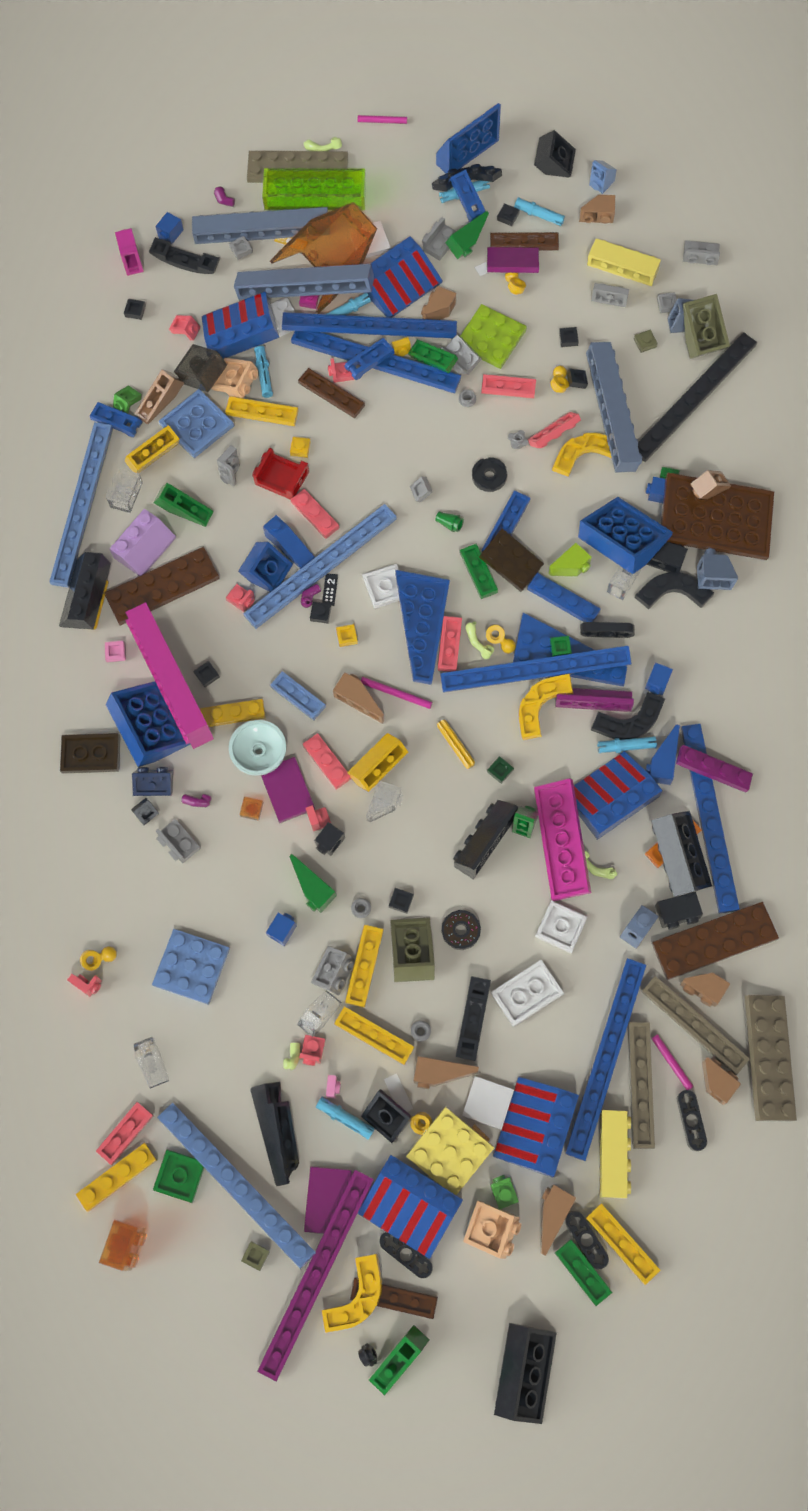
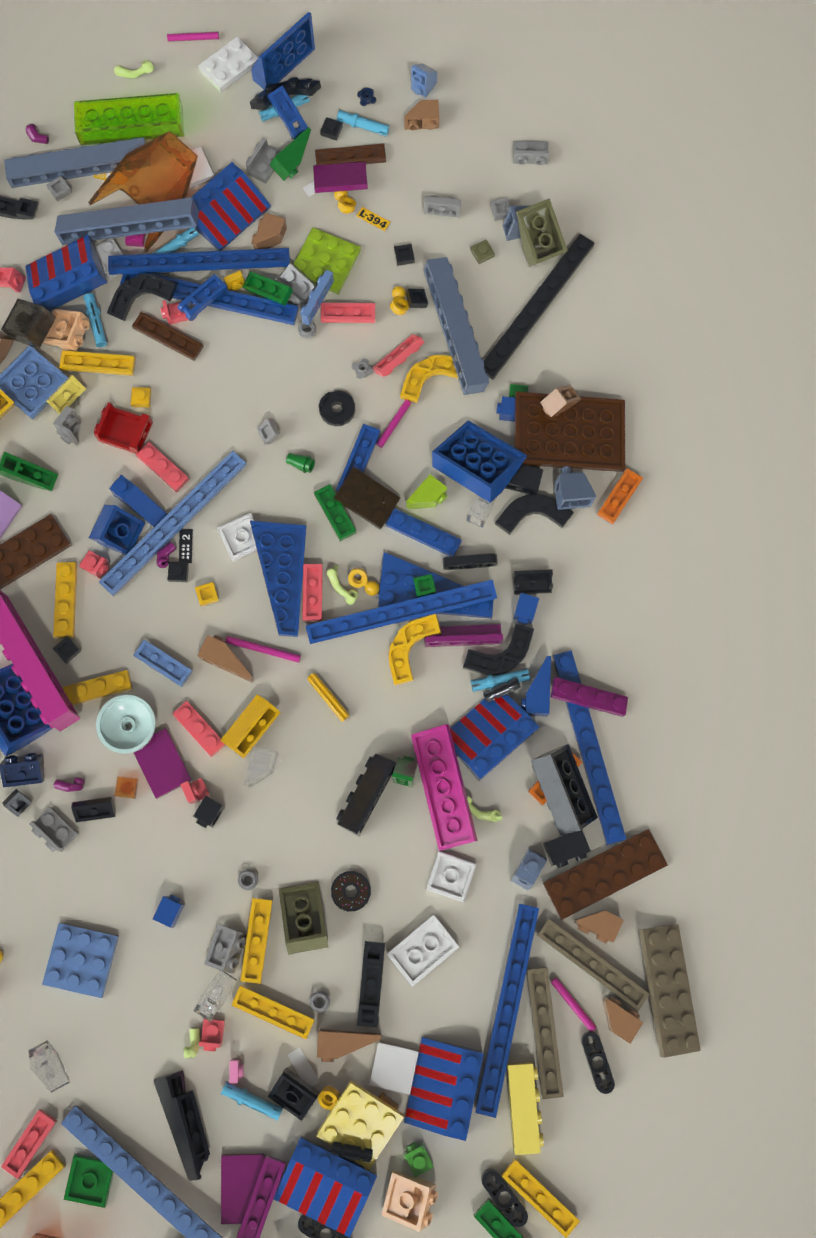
camera: 10 degrees left, 5 degrees up
(209, 628) = (65, 600): none -> yellow plate
(217, 825) = (93, 809): none -> black plate
(229, 436) = (66, 394): none -> light yellow plate
(293, 159) = (105, 89): dark tan plate -> none
(309, 343) = (138, 286): none -> black plate
(315, 890) = (197, 866): green slope -> none
(401, 900) = (287, 868): black plate -> none
(414, 147) = (228, 64): none -> white plate
(440, 1174) = (351, 1151): none -> black axle
(480, 368) = (316, 297): none -> medium blue plate
(500, 770) = (375, 720): dark green plate -> none
(541, 302) = (373, 219): none -> yellow sticker
(542, 495) = (400, 413): none -> dark pink bar
(545, 187) = (366, 92): none -> dark blue plate
(554, 1211) = (471, 1170): medium nougat slope -> none
(555, 155) = (373, 61): black slope -> none
(623, 262) = (453, 169): light yellow brick -> none
(628, 753) = (501, 689): none -> black axle
(668, 654) = (532, 582): none -> black hinge
(761, 582) = (619, 496): none -> orange plate

